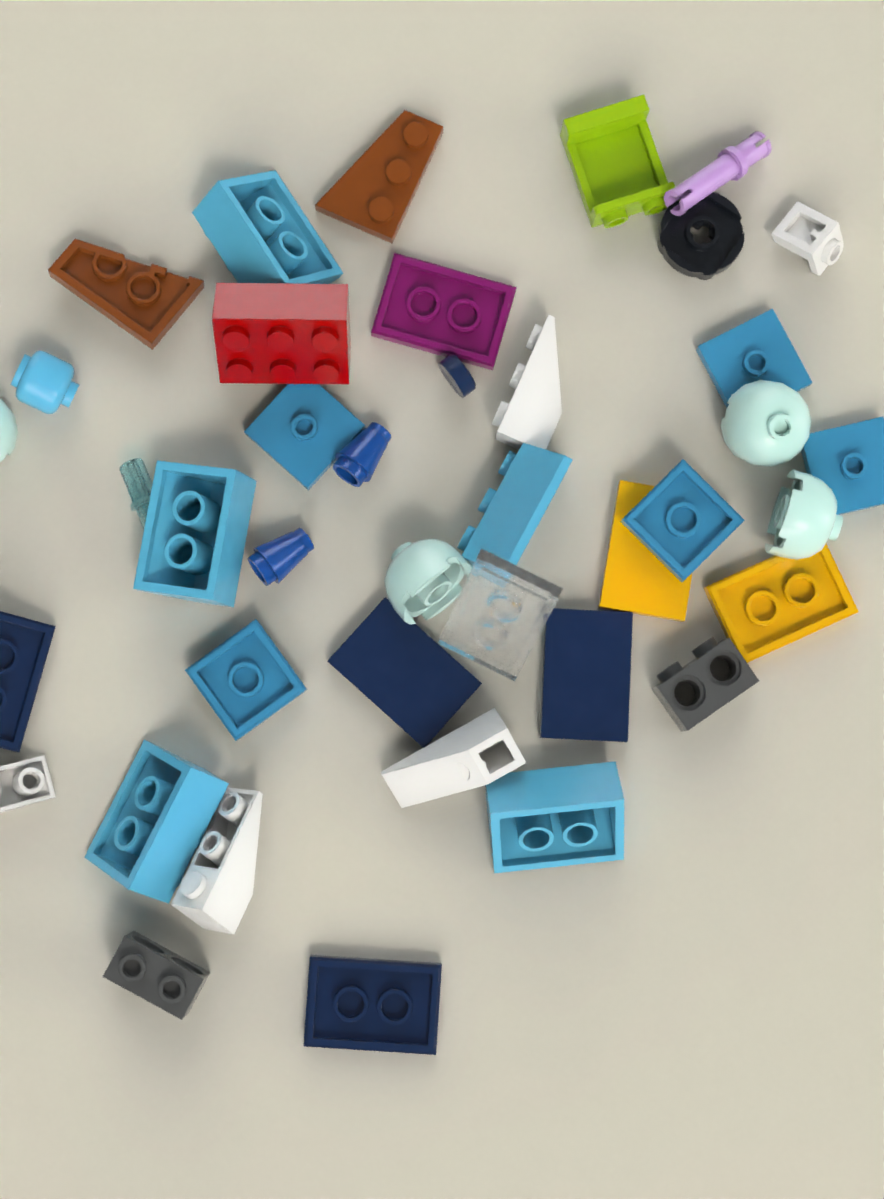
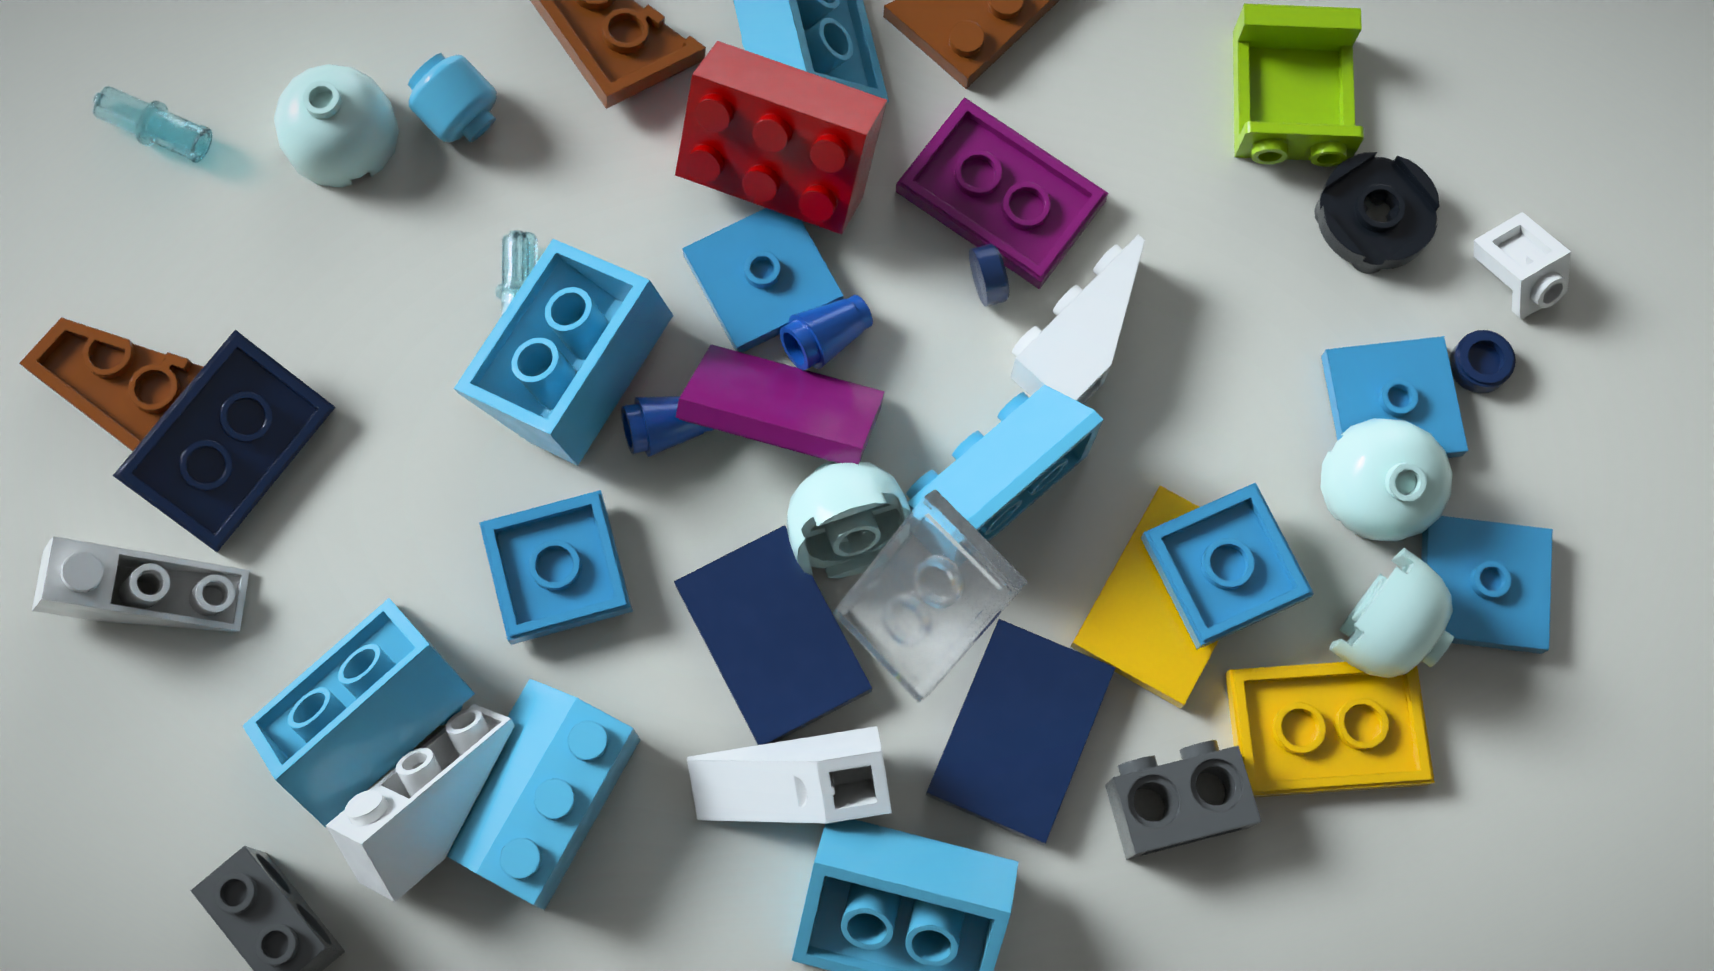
camera: 25 degrees right, 10 degrees down
(296, 829) = (543, 792): none -> medium azure slope
(353, 519) = (781, 405): none -> magenta tile
(730, 164) = (1443, 136): lavender pin -> none
(802, 315) = (1482, 361): none -> dark blue tile

